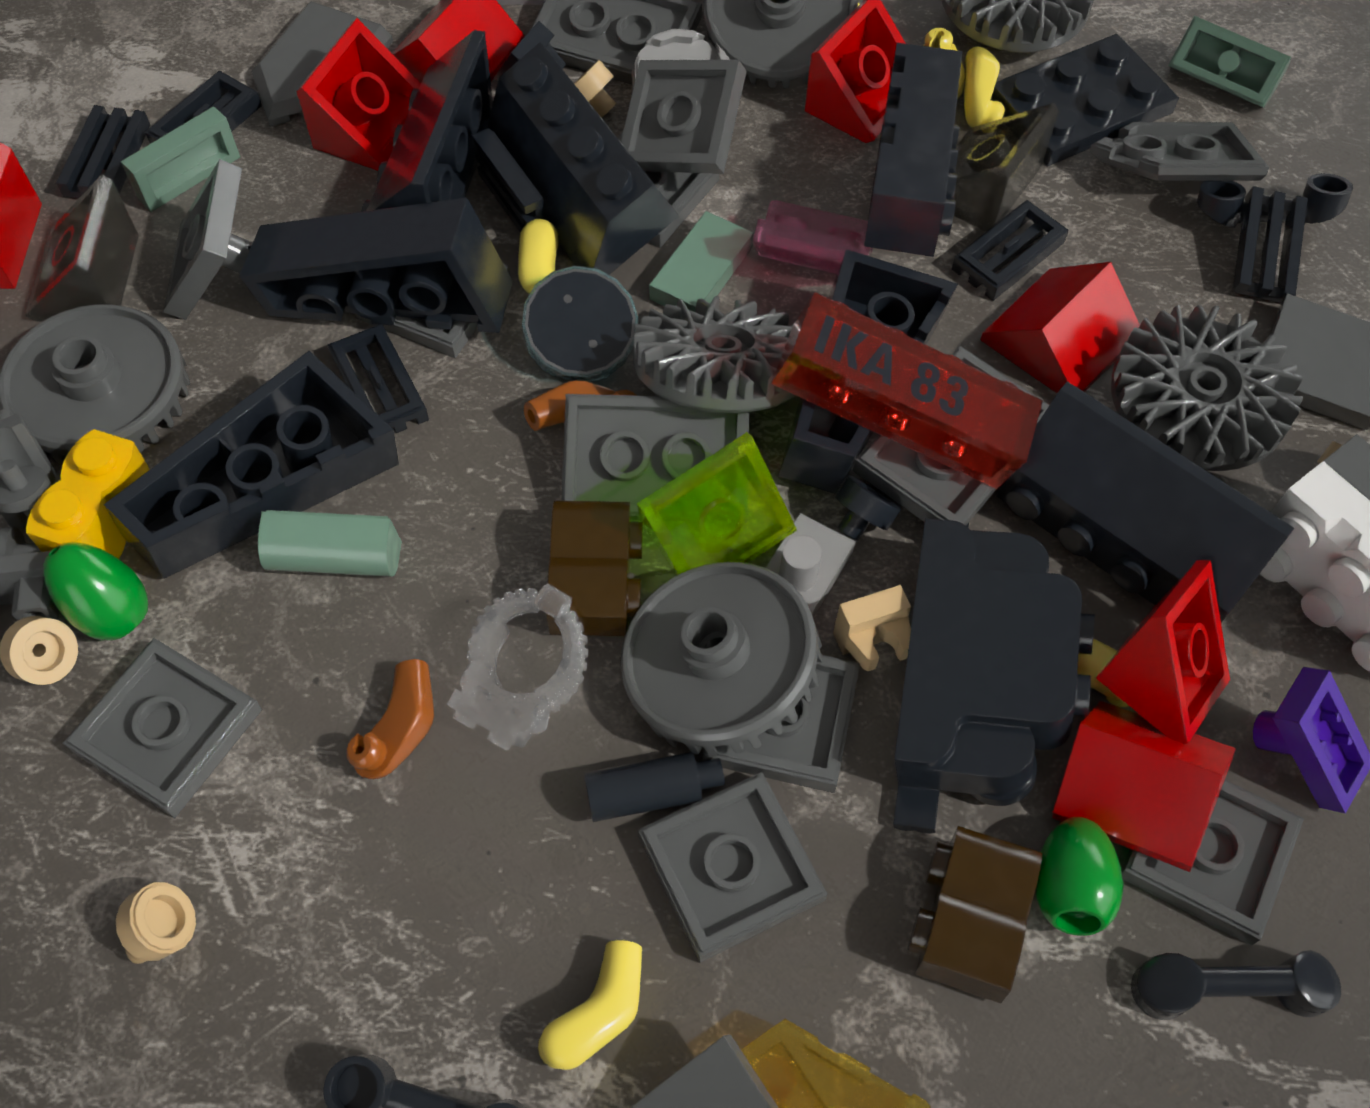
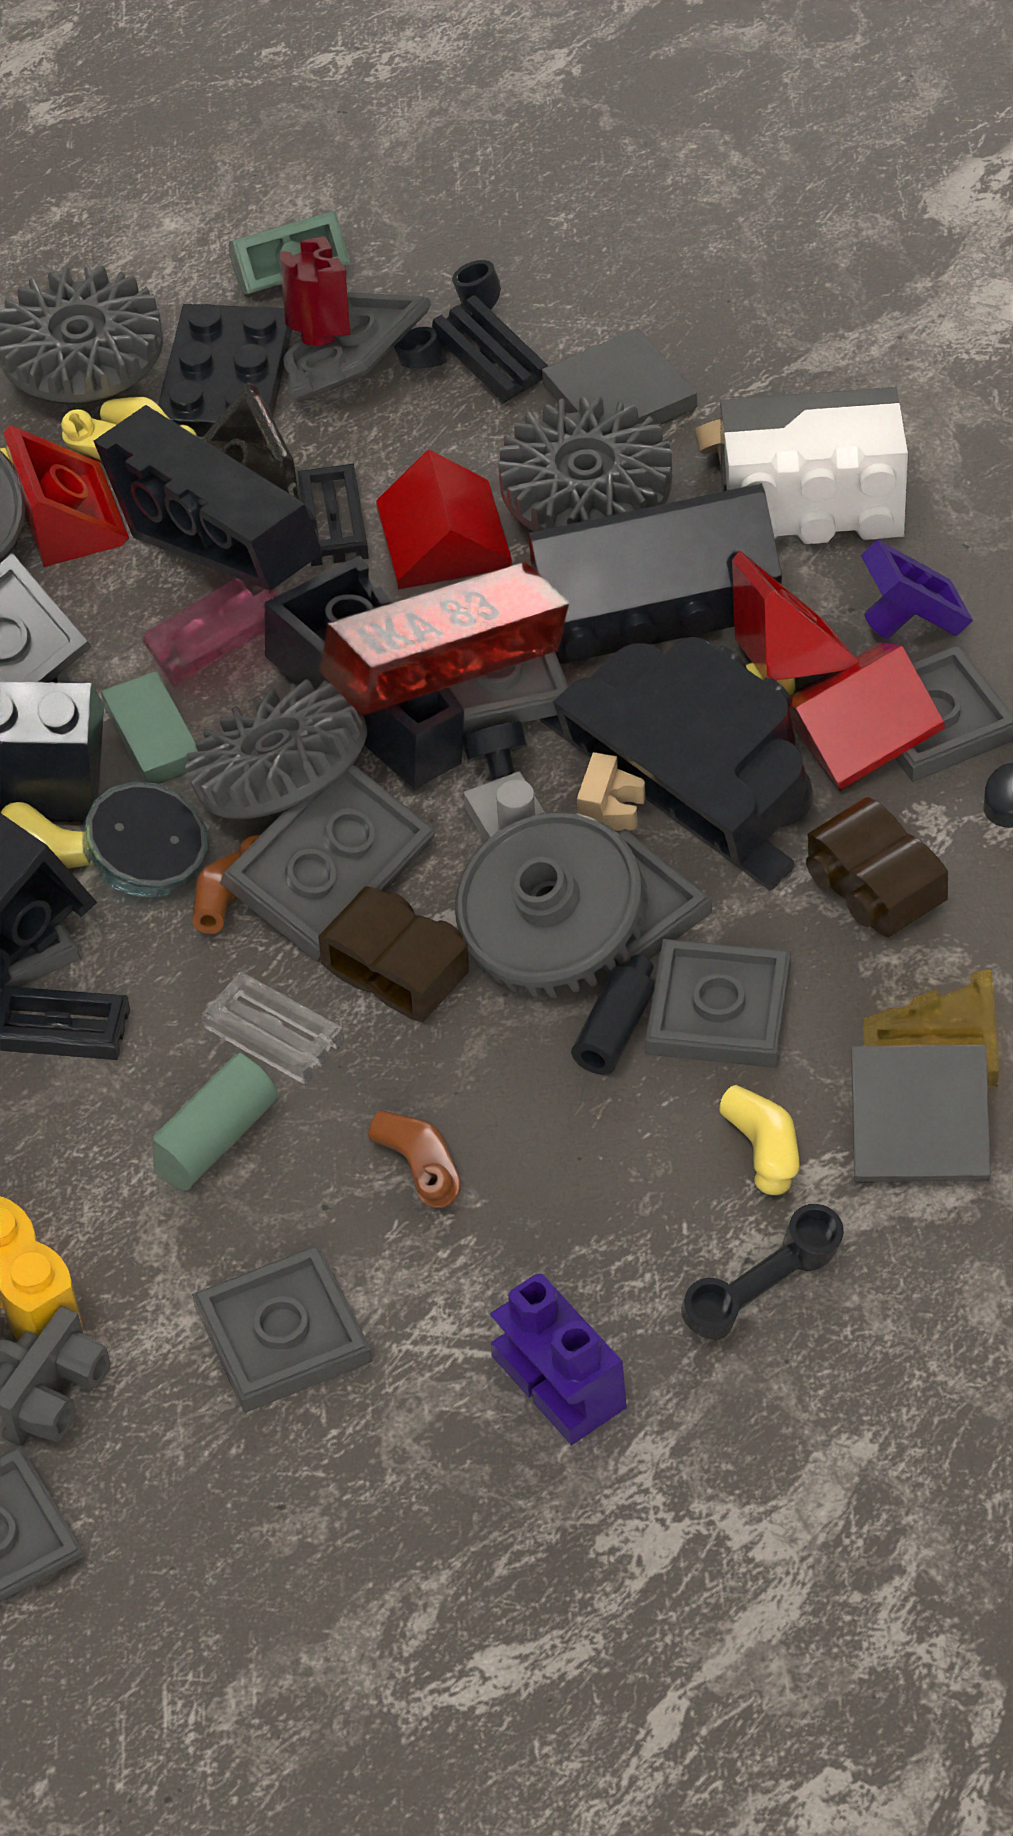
camera: 50 degrees left, 10 degrees down
(38, 650) = (134, 1379): tan tile -> none
(95, 590) = (122, 1301): green animal -> none
(155, 922) = (467, 1389): tan tile -> none
(205, 996) = (558, 1359): none -> dark purple hips
(274, 450) = (93, 1116): black wedge -> none
(465, 571) = (265, 1035): none -> clear tile
(483, 699) = (453, 1084): clear piece -> none
(718, 510) = (424, 833): clear neon green slope -> none
(1079, 878) = (903, 787): green animal -> none
(1195, 91) = (315, 292): none -> dark red cylinder

